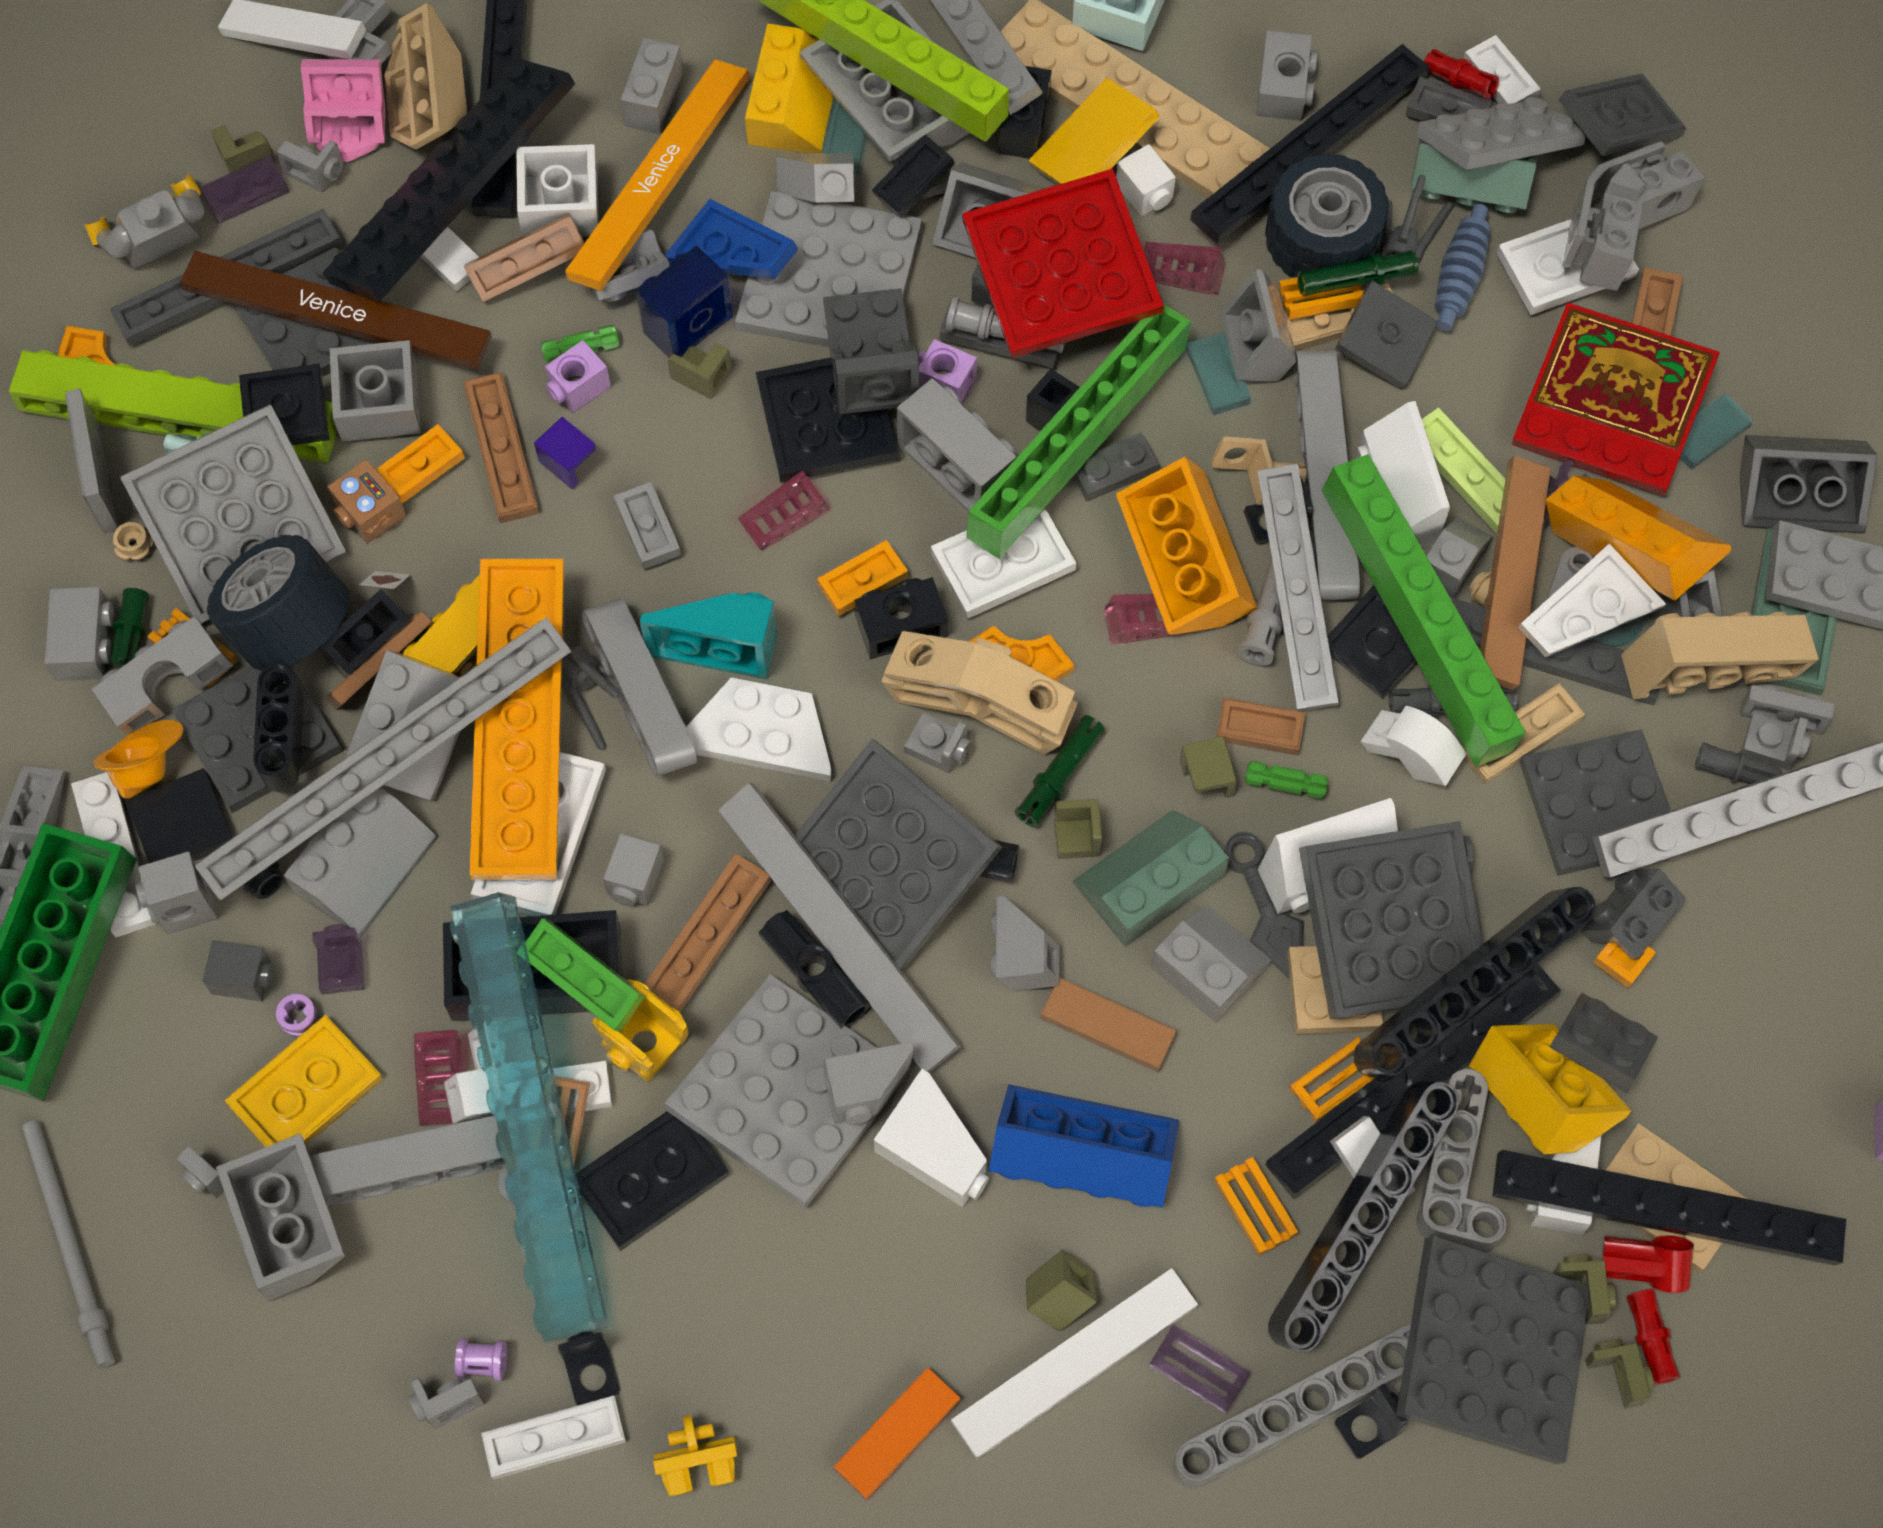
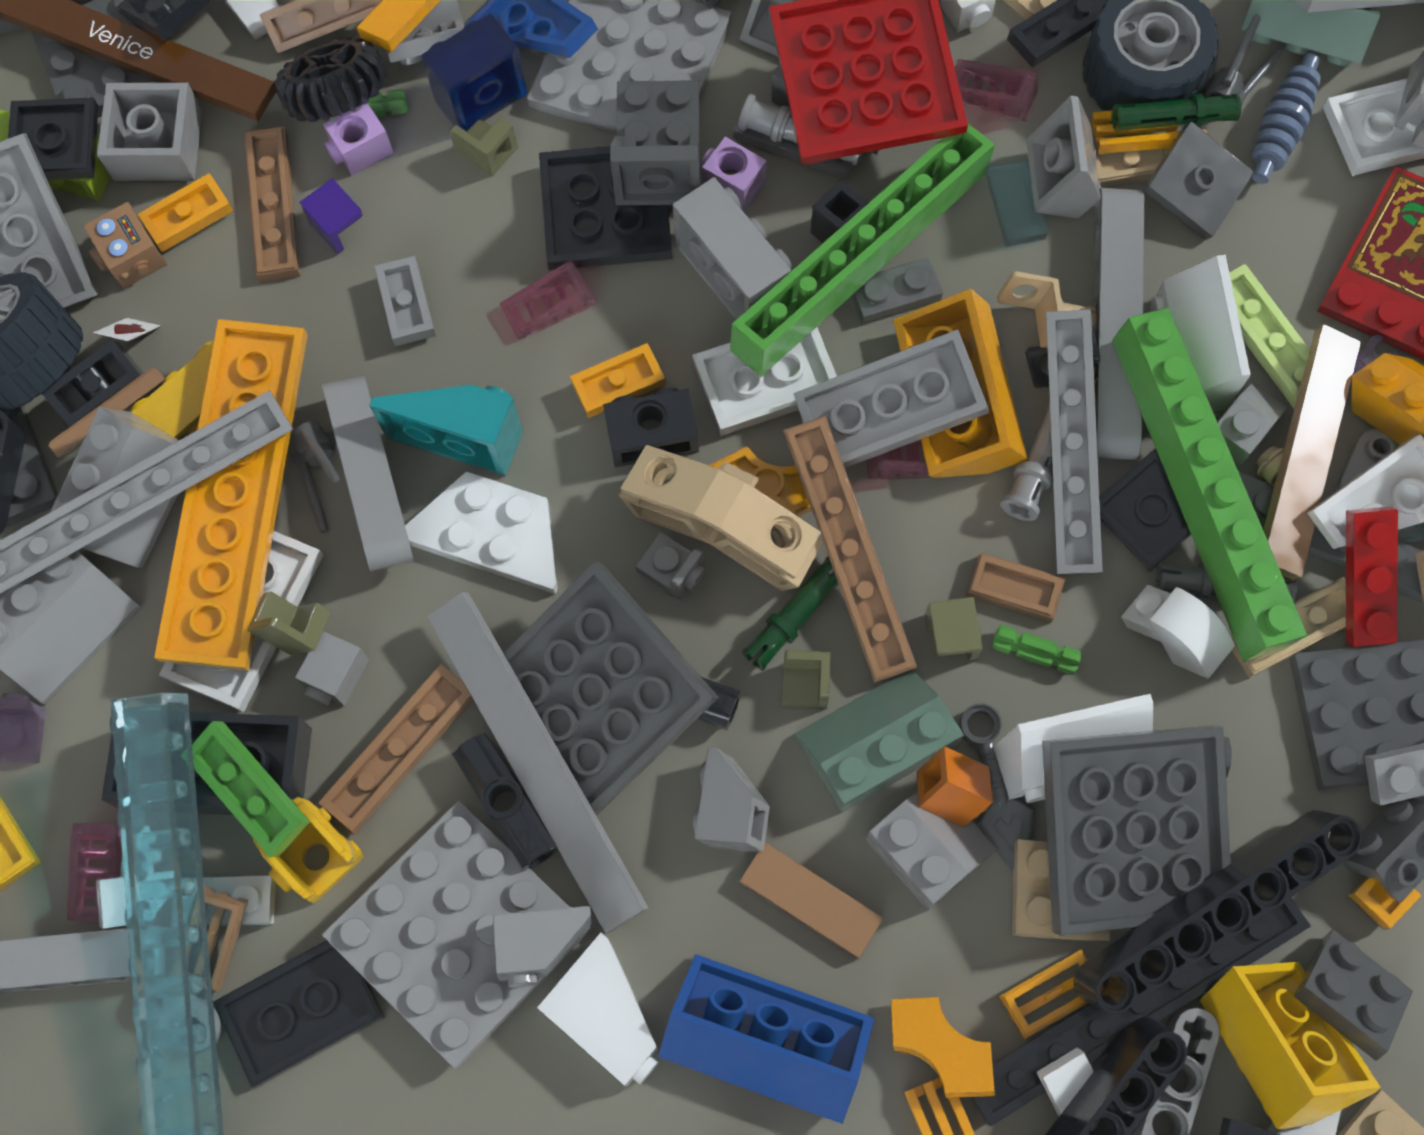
camera: 10 degrees right, 5 degrees up
(544, 323) = (330, 79): none -> black gear
(589, 835) = (289, 626): none -> olive panel
(1103, 706) = (850, 549): none -> medium nougat tile
(1124, 569) = (897, 399): none -> light grey plate
(1226, 905) = (954, 787): none -> orange brick
(1259, 1142) = (960, 1062): none -> light orange tile
(1581, 677) = (1371, 576): none -> red plate

